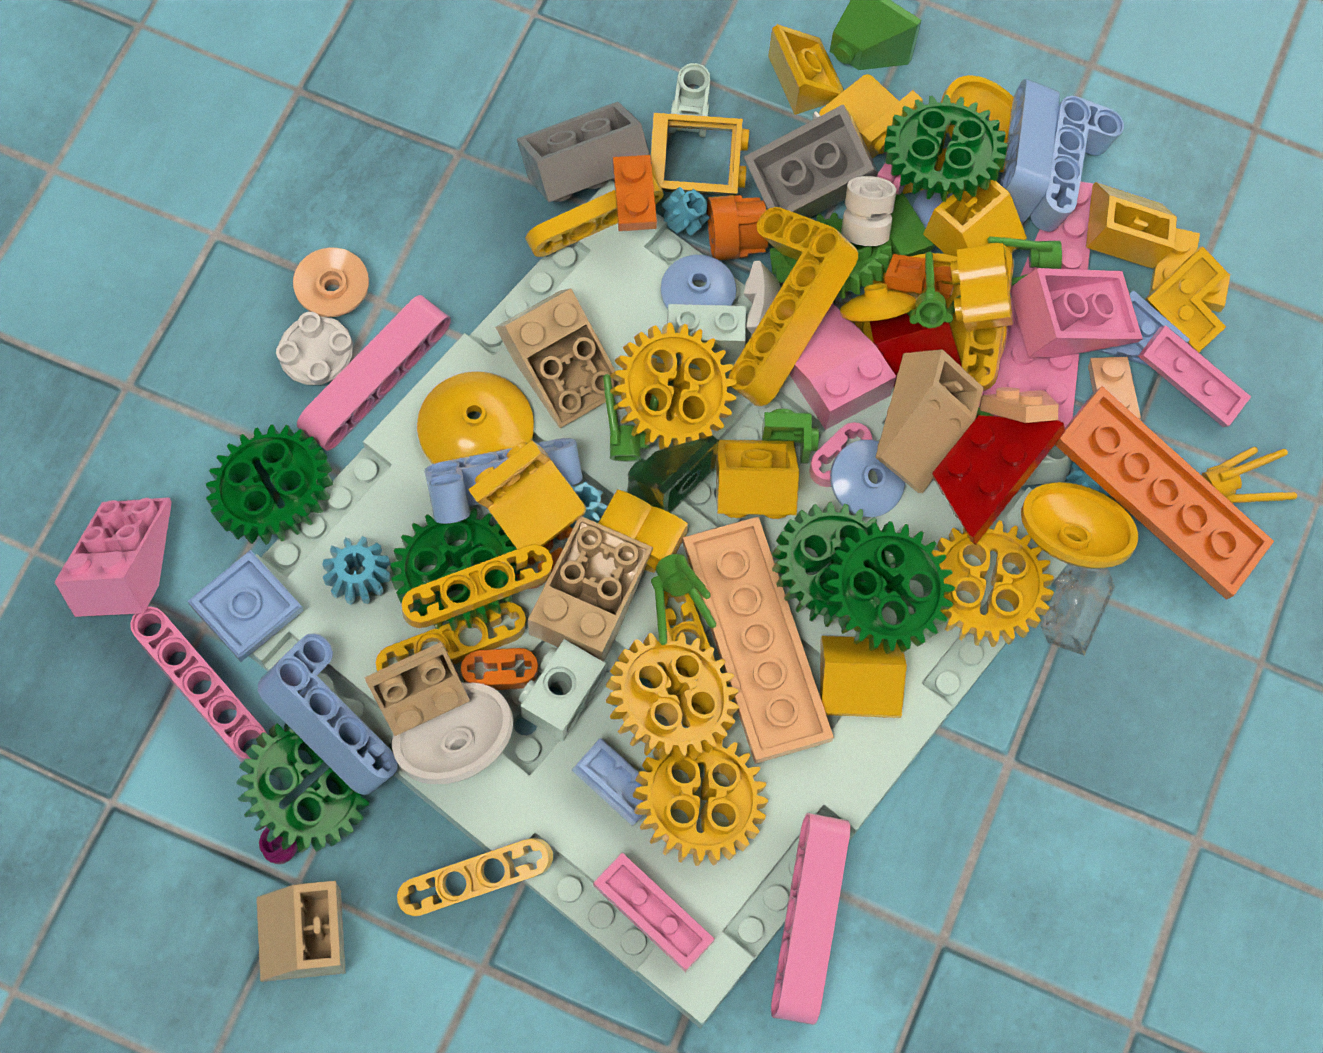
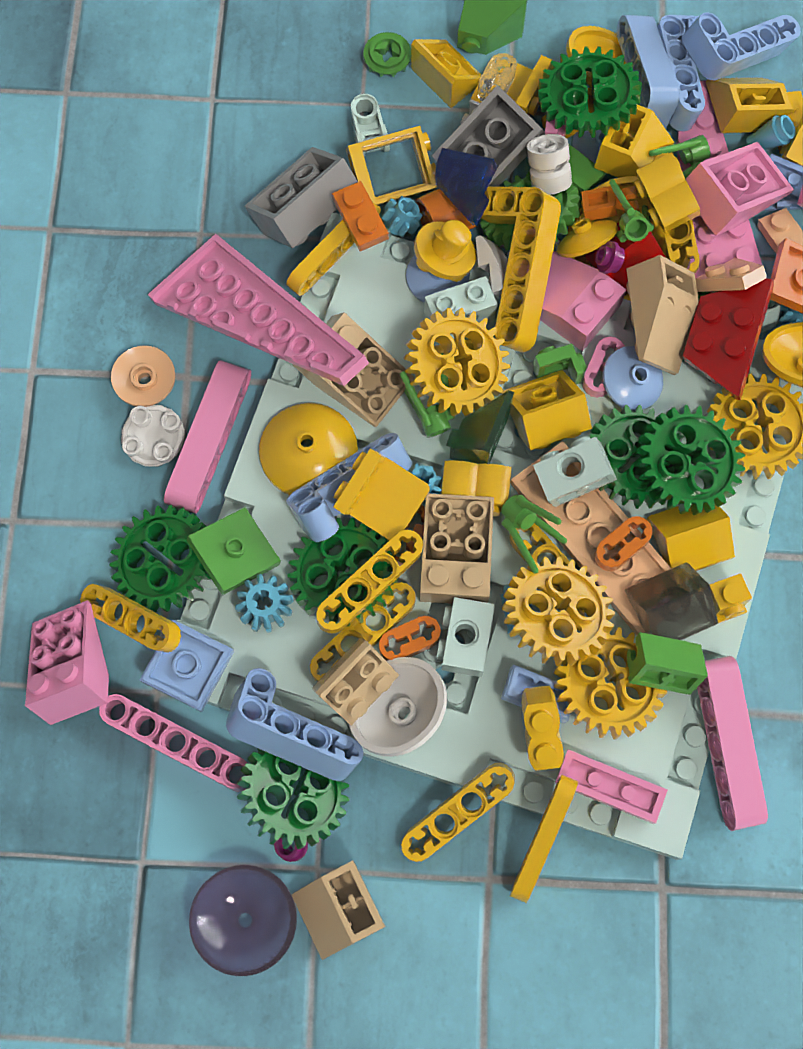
camera: 15 degrees left, 5 degrees up
(170, 883) = (217, 926): none -> clear purple dish
(205, 531) = (128, 620): none -> yellow beam
(347, 502) = (233, 551): none -> bright green plate
(468, 240) = (242, 302): none -> bright pink wing
(555, 940) = (544, 838): none -> yellow beam
(600, 812) = (542, 728): none -> yellow brick
(713, 263) = (445, 249): none -> yellow plate
(744, 18) = (379, 45): none -> bright green gear
(763, 194) = (465, 180): none -> clear blue slope
(768, 799) = (666, 664): none -> bright green hinge
(772, 562) = (594, 471): none -> light aqua brick
(774, 643) = (618, 537): none -> orange beam
(804, 741) = (674, 603): none -> clear smoke slope
(850, 94) = (493, 77): none -> clear beam
(870, 756) = (730, 597): none -> yellow brick
(890, 334) = (609, 257): none -> magenta plate
(1119, 162) = (723, 54): none -> light blue beam
(1146, 268) = (774, 133): none -> medium azure cone

